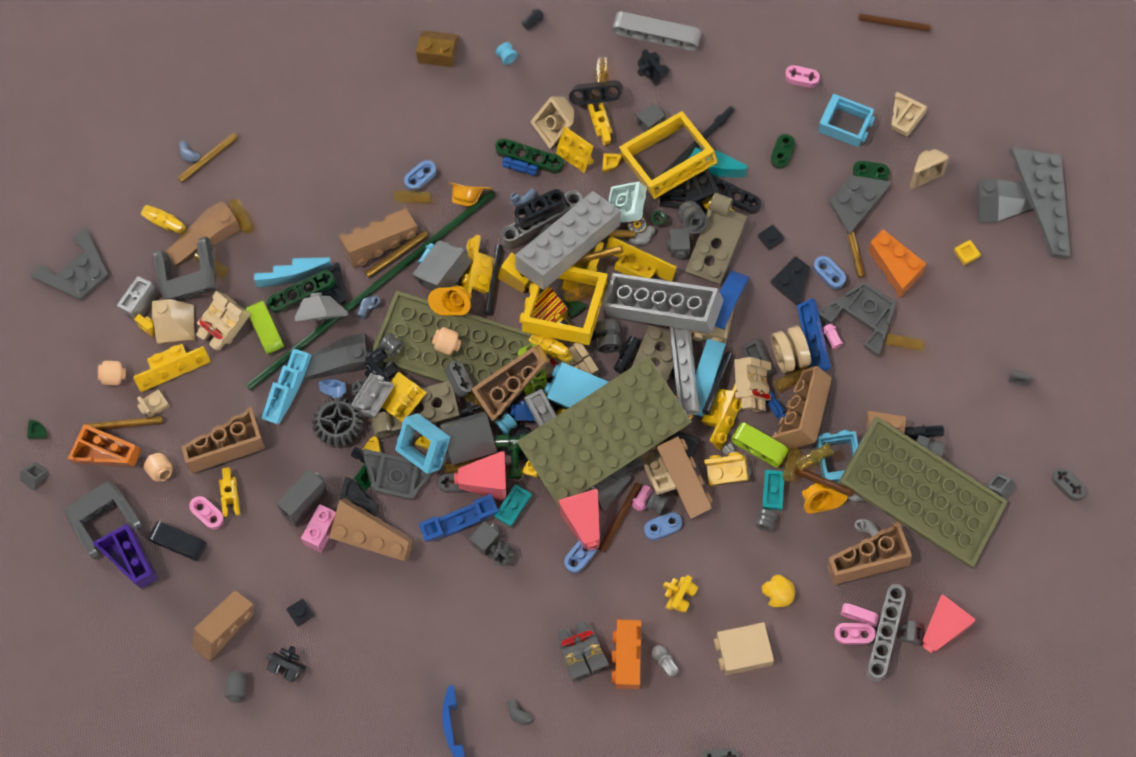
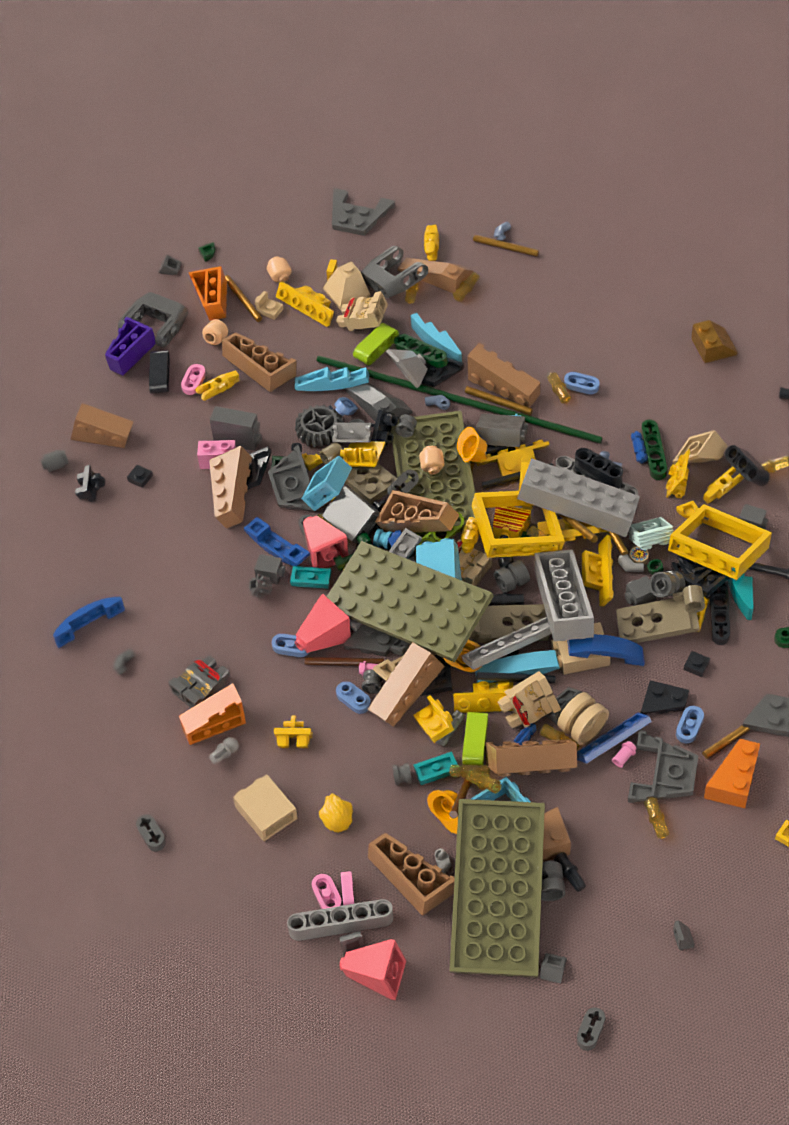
camera: 65 degrees right, 15 degrees down
(138, 298) = (356, 253): light grey hinge -> none
(466, 195) = (582, 418): light orange piece -> none
(506, 53) = (742, 390): medium azure wheel -> none

